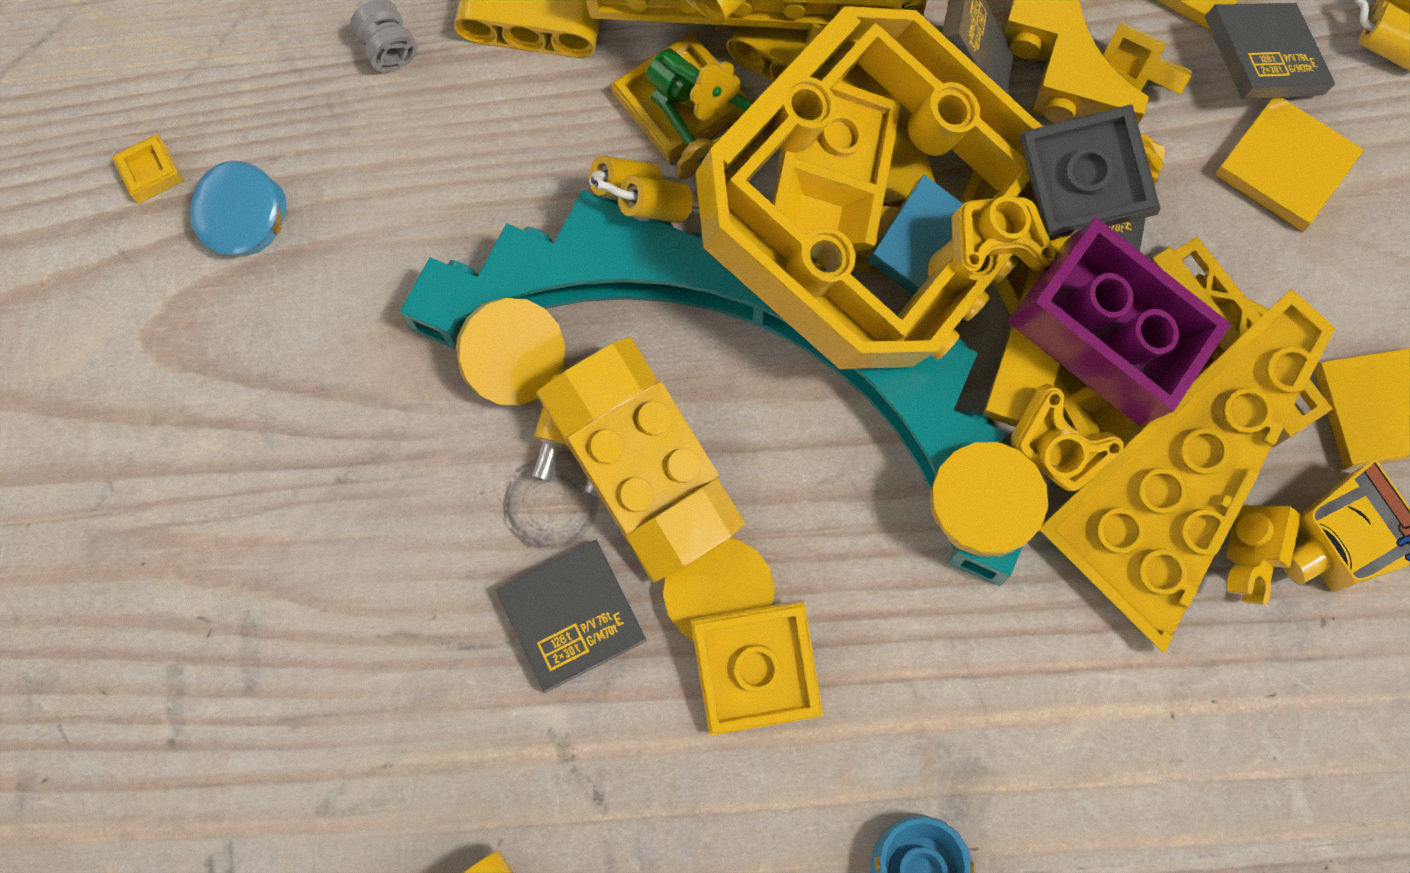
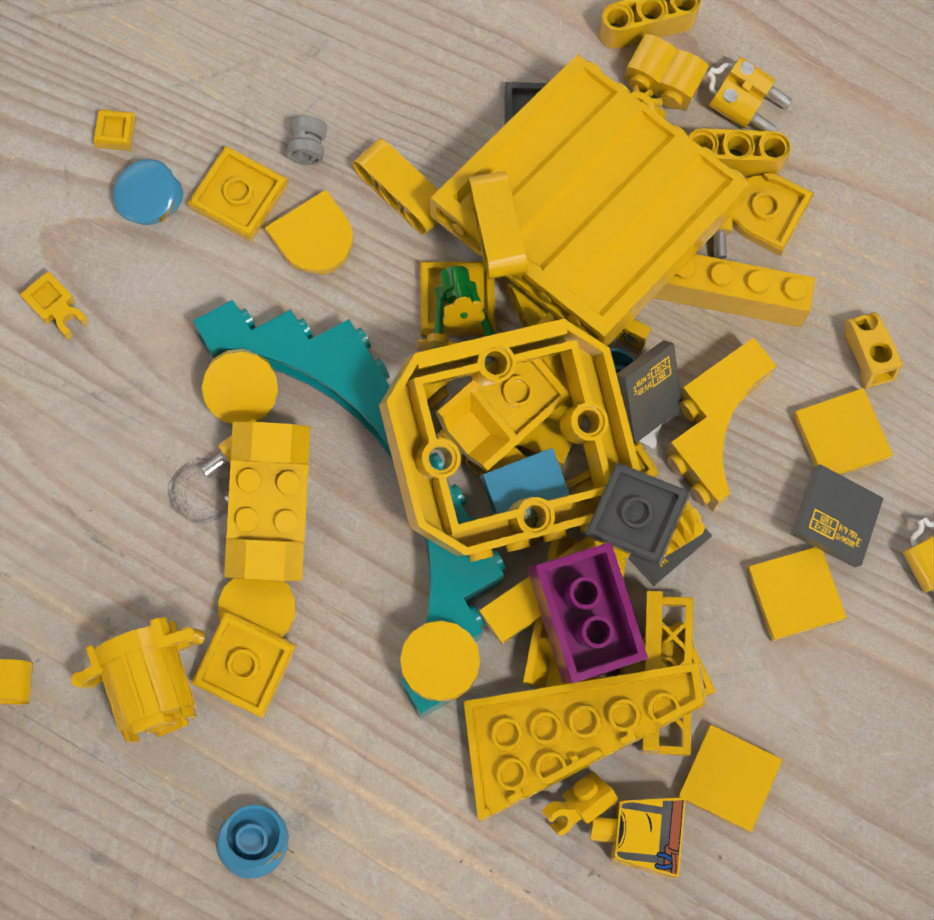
camera: 25 degrees right, 0 degrees up
(212, 404) = (53, 301): none -> yellow plate
(345, 146) = (238, 193): none -> yellow tile
(467, 134) = (313, 235): none -> yellow tile
(570, 616) = (165, 563): dark grey tile -> none
(642, 189) = (381, 341): yellow piece -> none
(655, 771) = (144, 678): none -> yellow container
(999, 228) = (558, 509): yellow piece -> none
(1059, 448) = (504, 662): yellow piece -> none
(1138, 58) = (749, 465): yellow plate -> none

